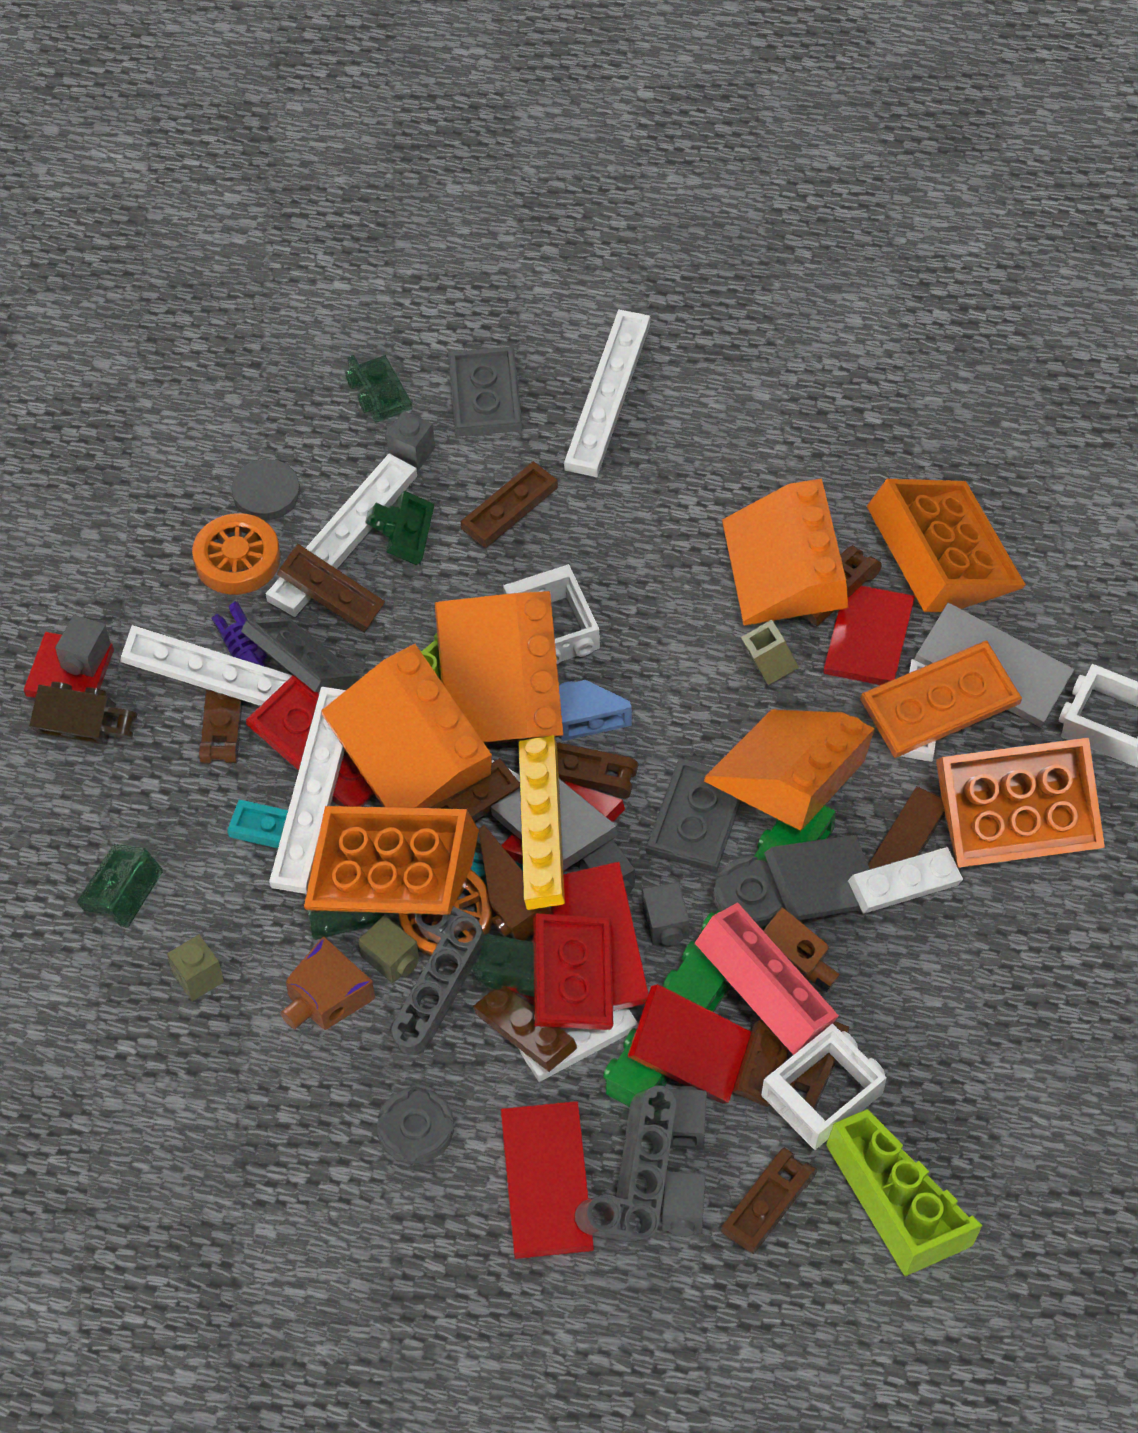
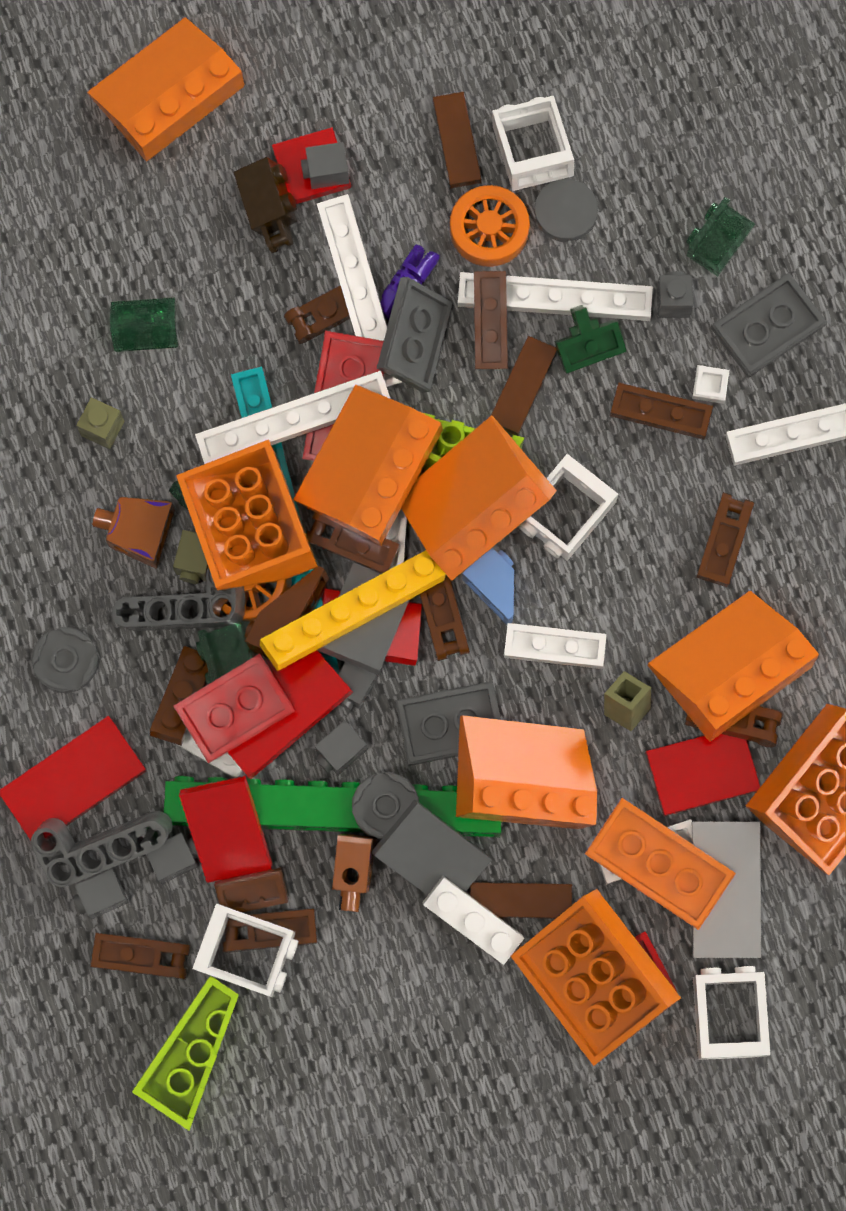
camera: 60 degrees right, 20 degrees up
(134, 541) = (457, 140): none -> reddish brown tile
(214, 488) = (541, 168): none -> white window
(404, 598) = (523, 384): none -> reddish brown tile
(509, 458) = (710, 384): none -> white tile
(663, 513) = (724, 541): none -> reddish brown plate
(677, 691) = (555, 646): none -> white plate
(765, 978) = (305, 860): coral brick -> none

